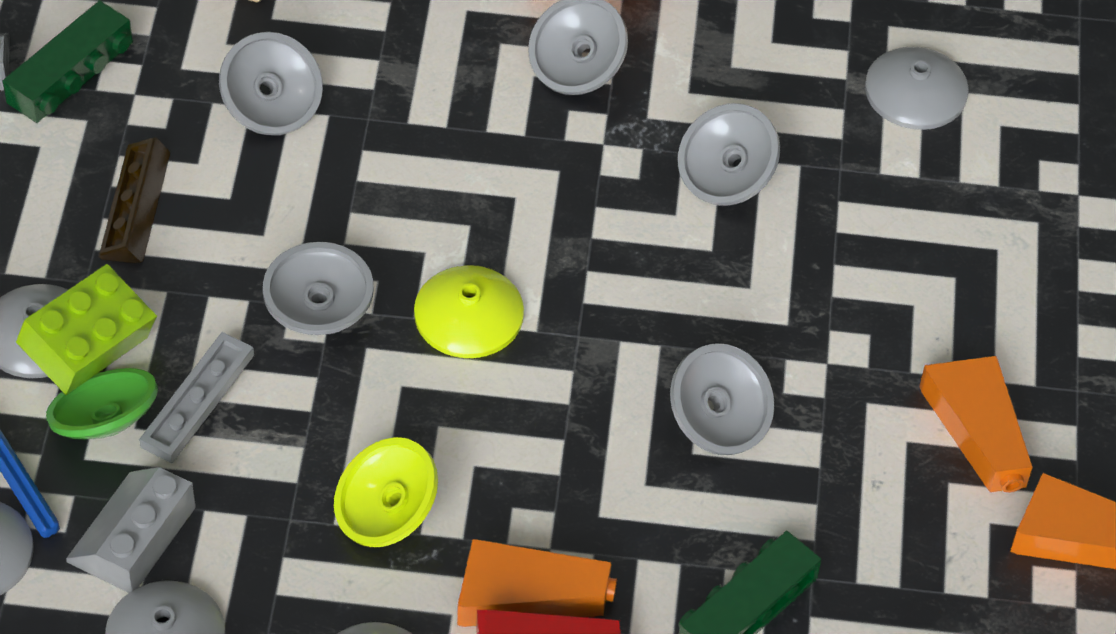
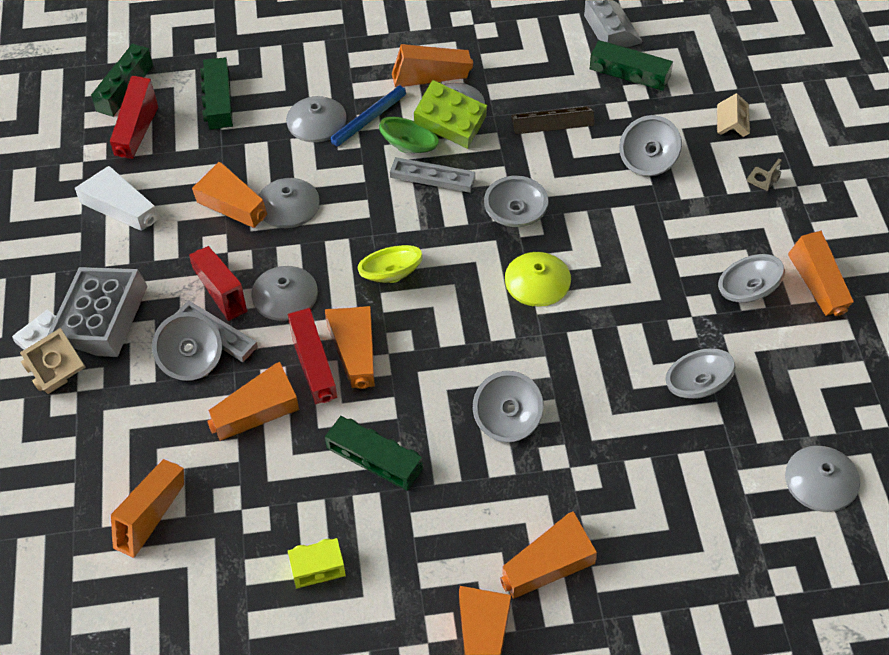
camera: 80 degrees right, 0 degrees up
(134, 527) = (341, 173): light grey slope -> none

